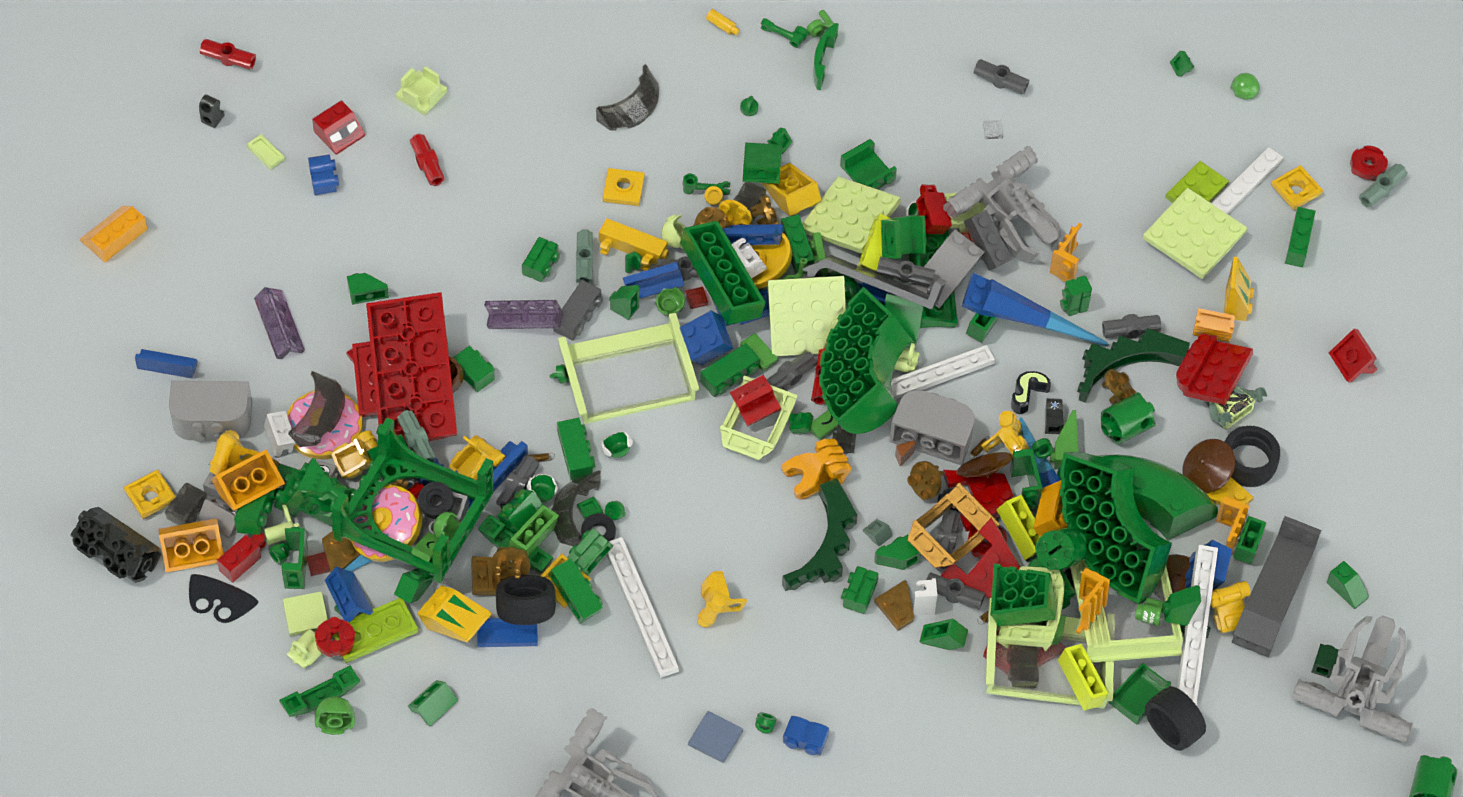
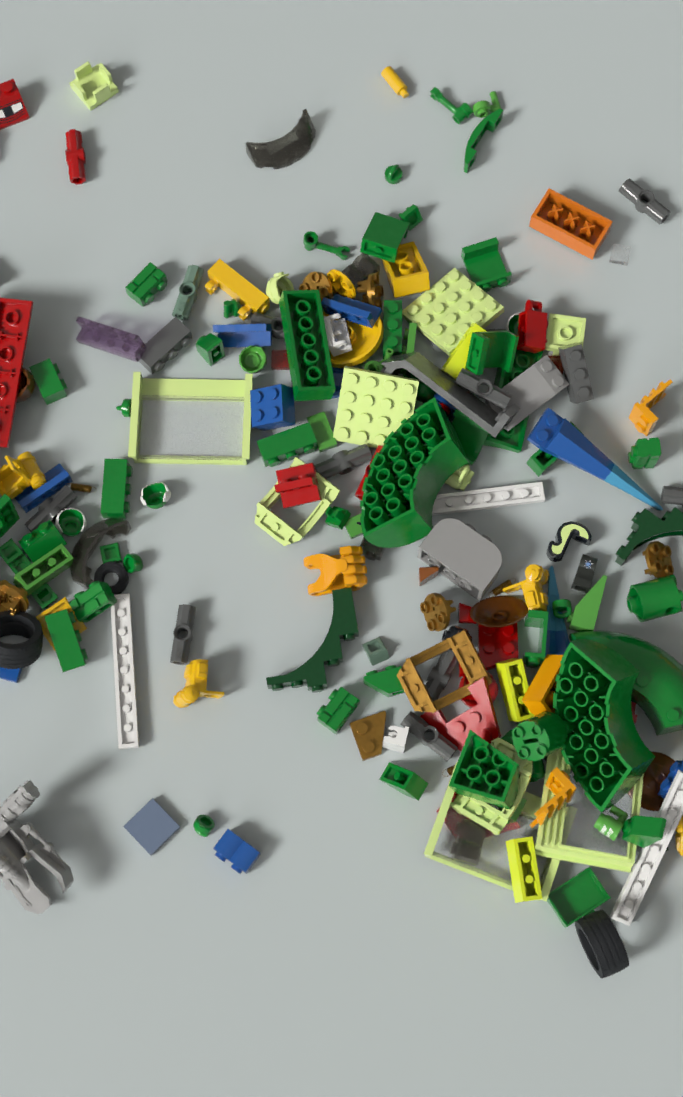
camera: 20 degrees right, 15 degrees up
(627, 196) = (251, 239): yellow piece -> none
(685, 551) = (180, 646): none -> dark grey piece
(713, 195) = (329, 258): yellow tile -> none
(937, 111) = (570, 223): none -> orange brick
(1006, 201) = (606, 338): light grey piece -> none

